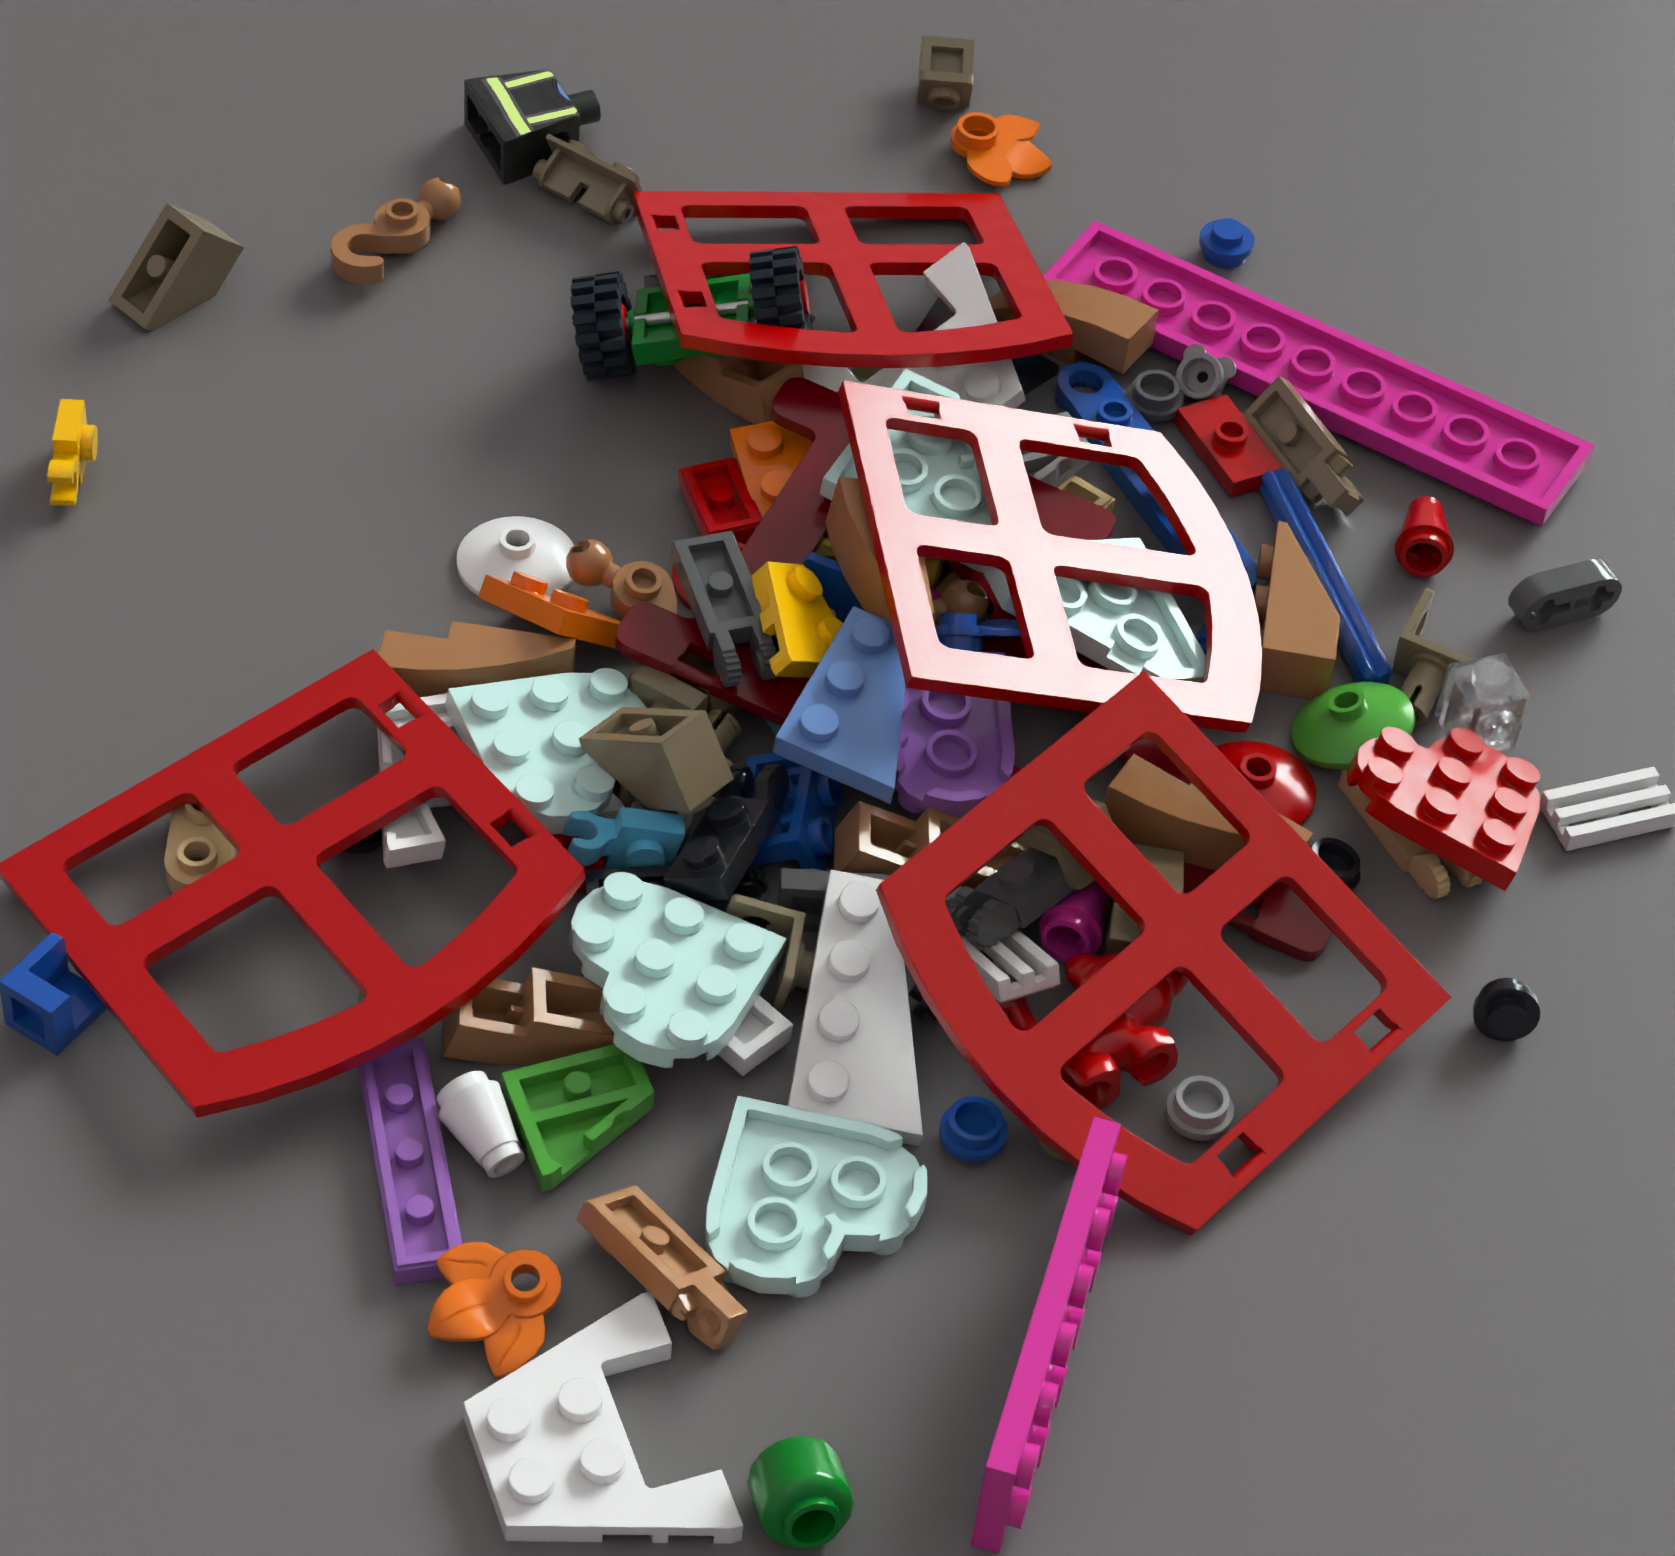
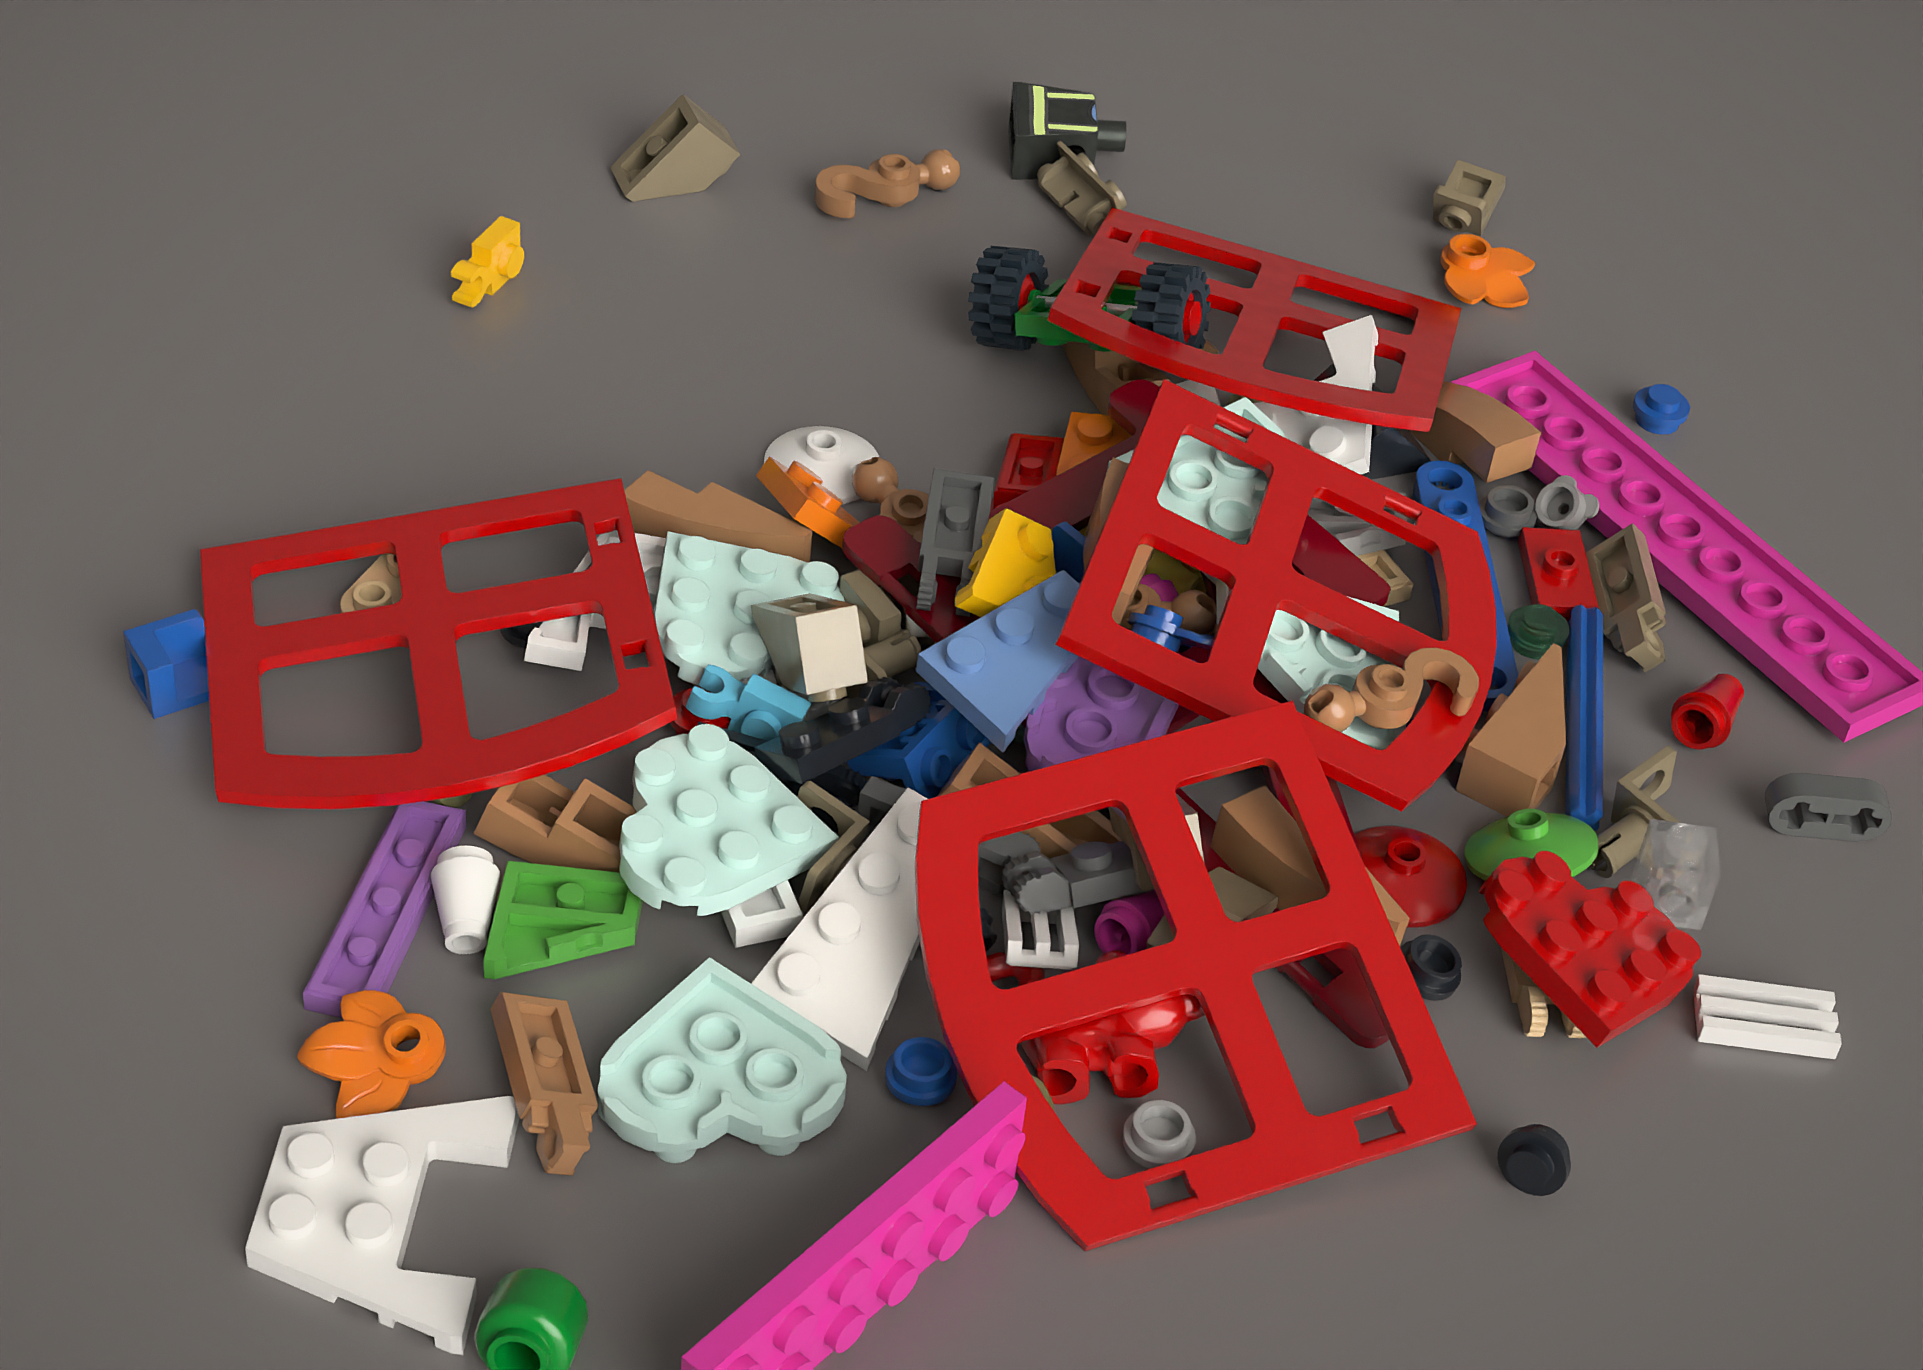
camera: 25 degrees right, 5 degrees down
(1187, 625) = (1388, 695): none -> medium nougat piece
(1243, 507) = (1535, 629): none -> clear green plate

